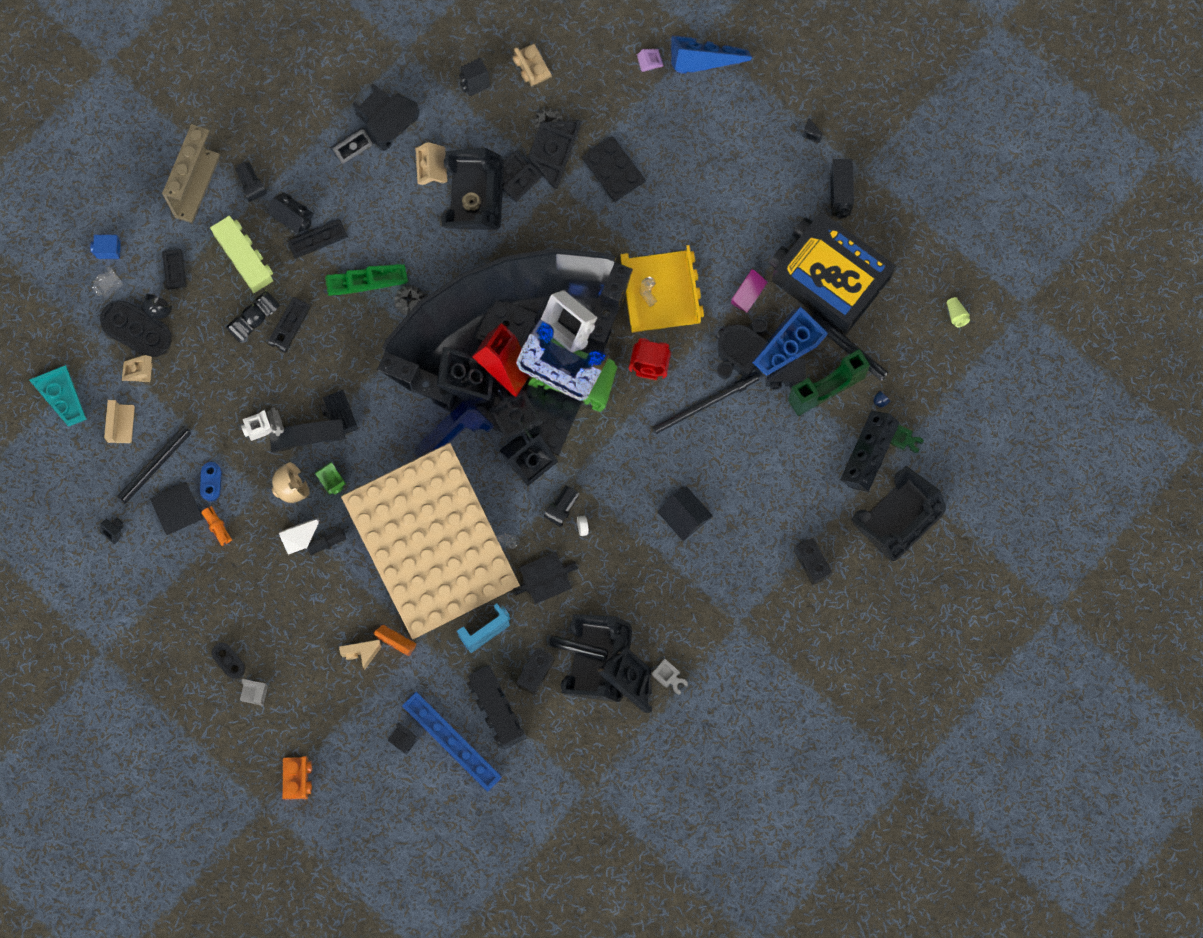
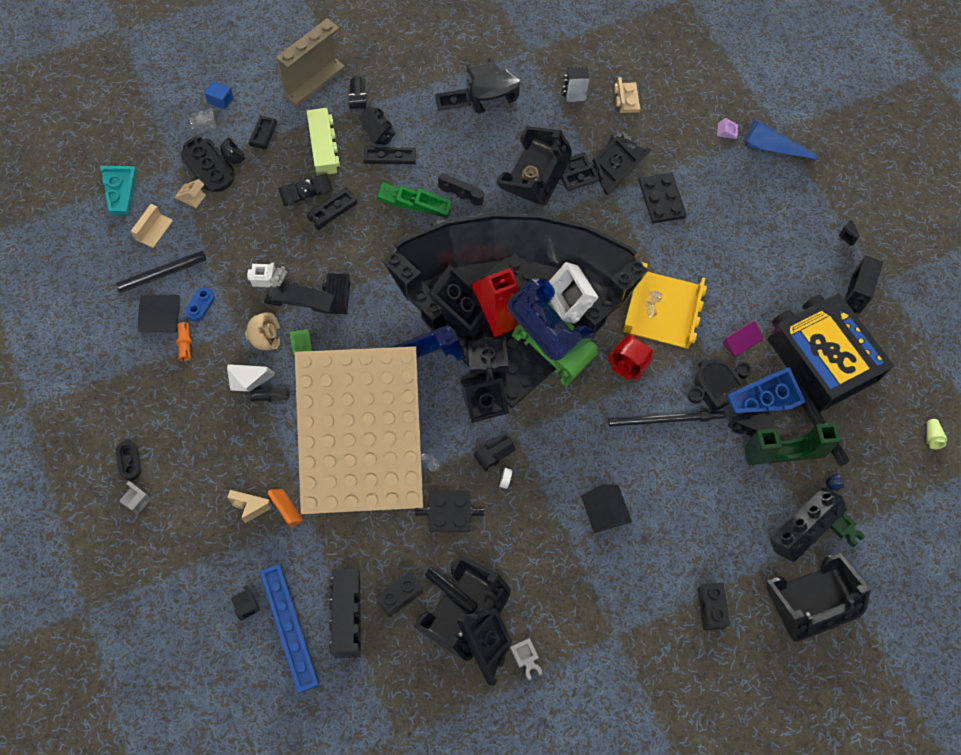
camera: 20 degrees right, 10 degrees down
(111, 530) = (95, 307): black tile -> none
(296, 778) = (128, 595): orange bracket -> none
(411, 248) = (461, 189): none -> black hinge
(430, 163) = (509, 135): tan panel -> none
(487, 632) = (370, 536): dark azure panel -> none

